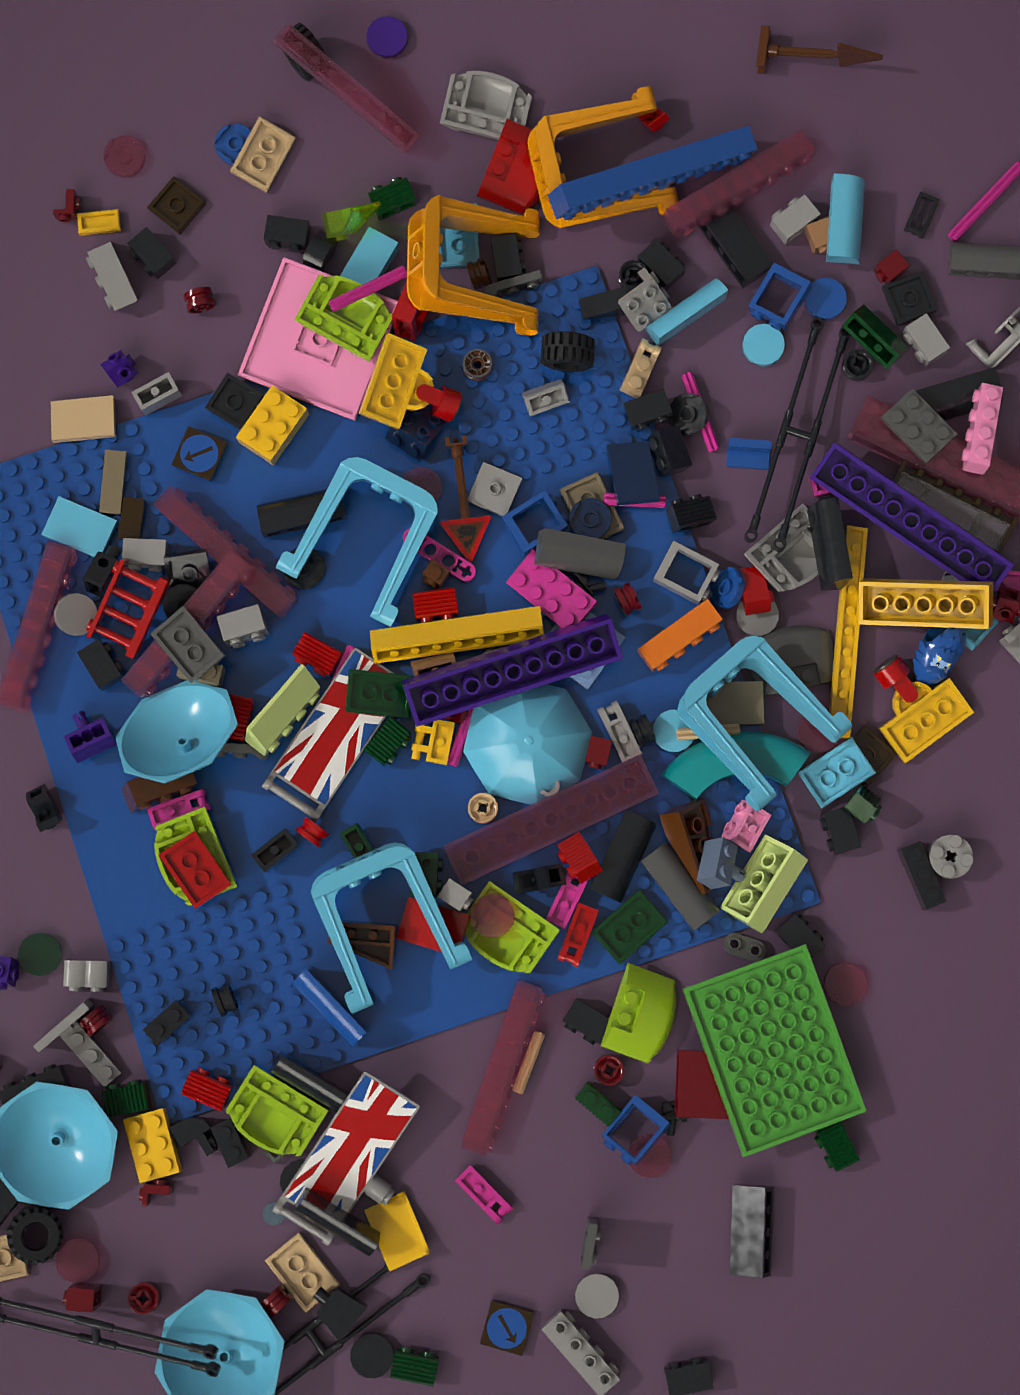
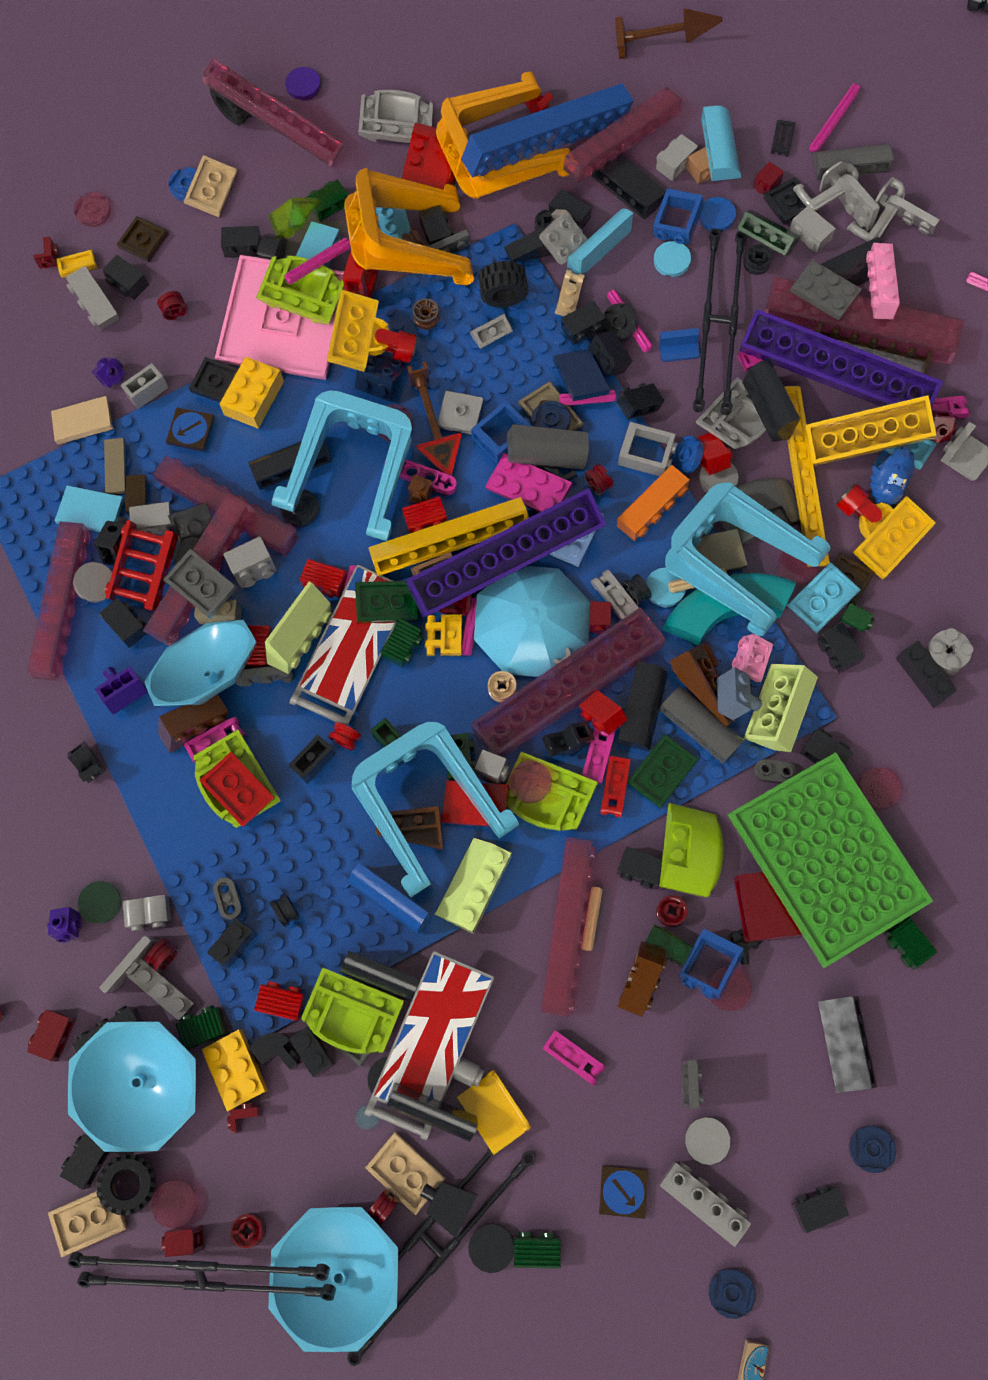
camera: 10 degrees left, 10 degrees down
(167, 977) = (228, 899): none -> dark grey plate
(416, 1008) = (474, 885): none -> yellowish green slope
(565, 1133) = (643, 979): none -> reddish brown wedge
(752, 1332) = (872, 1149): none -> dark blue tile
(971, 298) = (852, 195): none -> light grey plate

